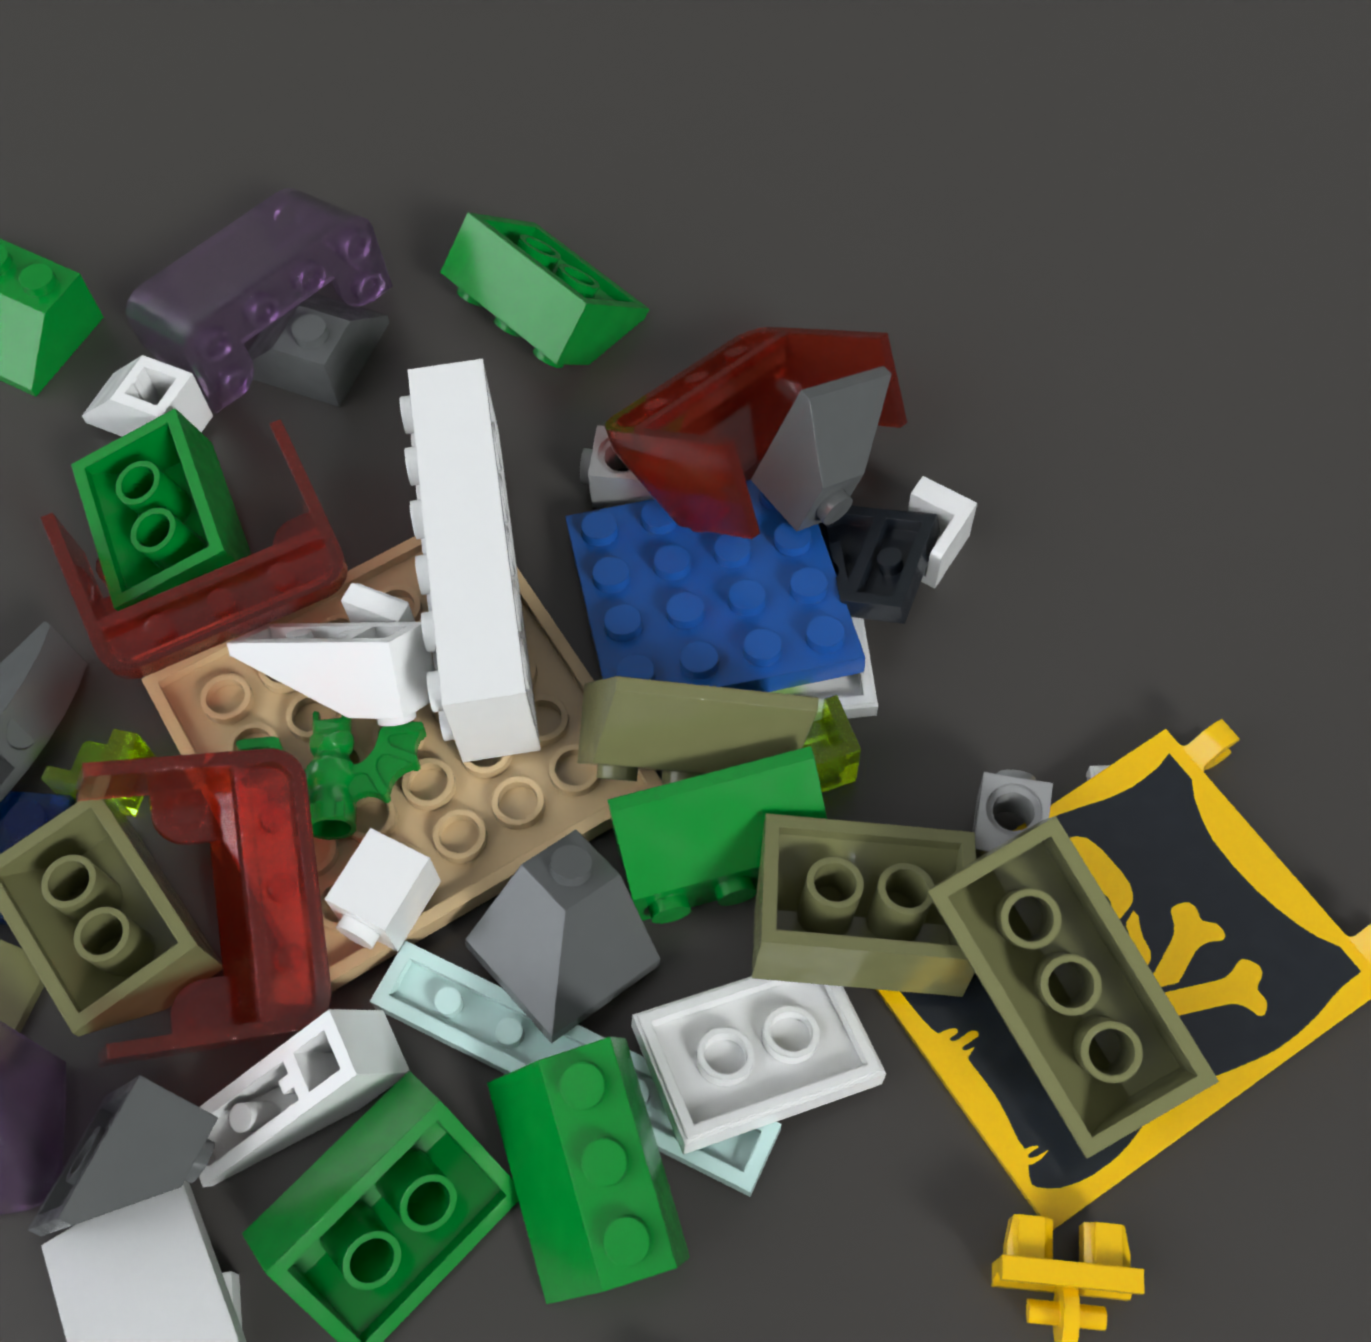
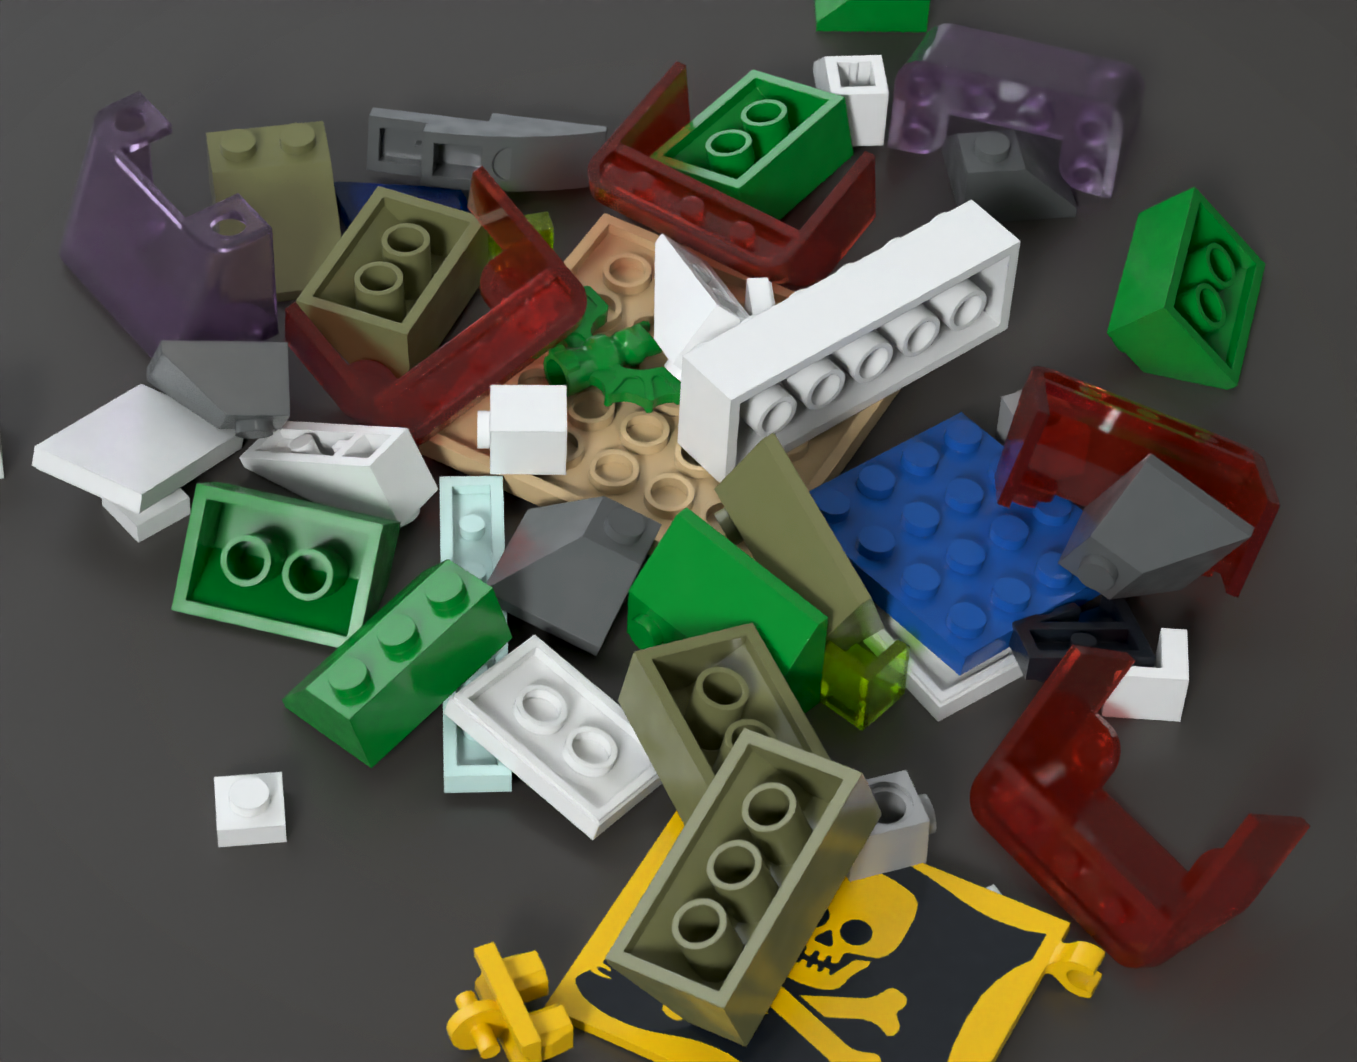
camera: 55 degrees right, 15 degrees down
(1109, 670) = (1089, 854): none -> clear red windscreen

